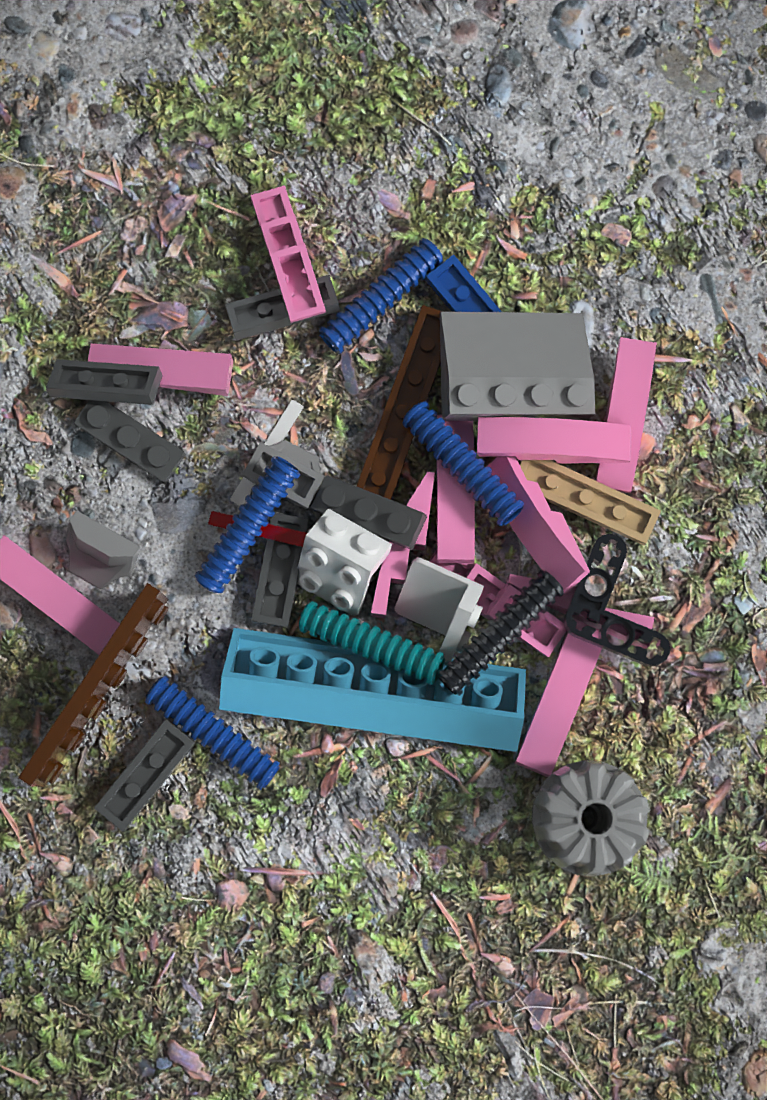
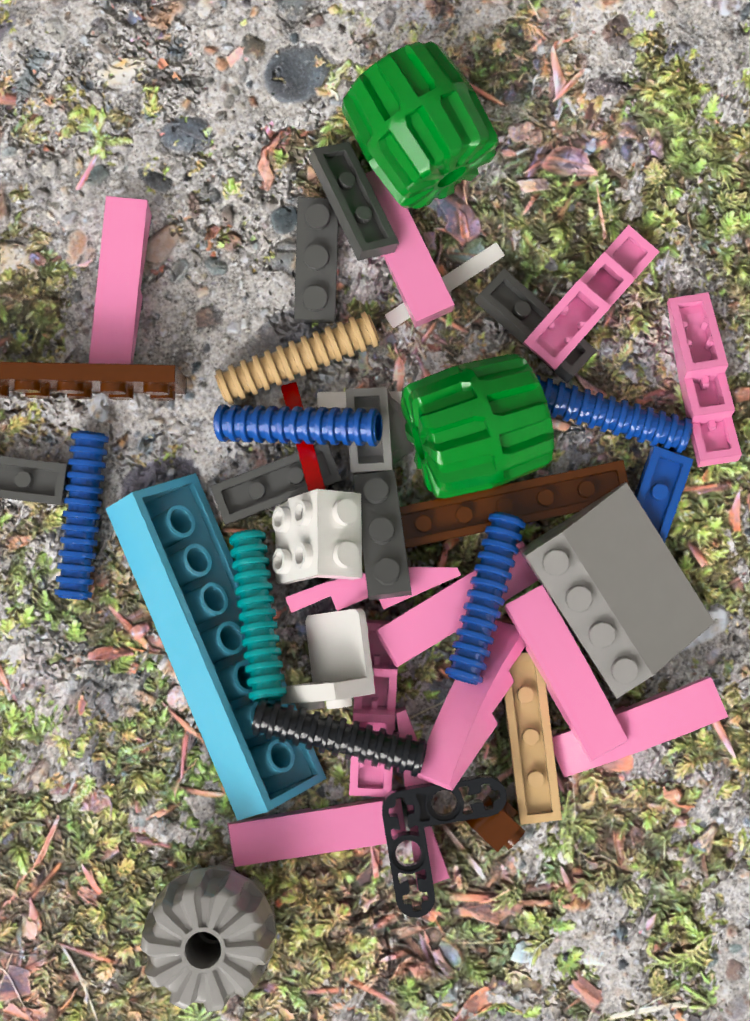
camera: 60 degrees right, 5 degrees up
(81, 297) = (419, 124): none -> green wheel
(98, 552) = (187, 299): light grey slope -> none
(195, 497) = (297, 358): none -> tan piece
(208, 336) = (454, 279): none -> white sticker
(331, 390) = (478, 425): none -> green wheel
(398, 212) = (703, 379): none -> bright pink slope
(639, 561) = (500, 828): none -> reddish brown plate

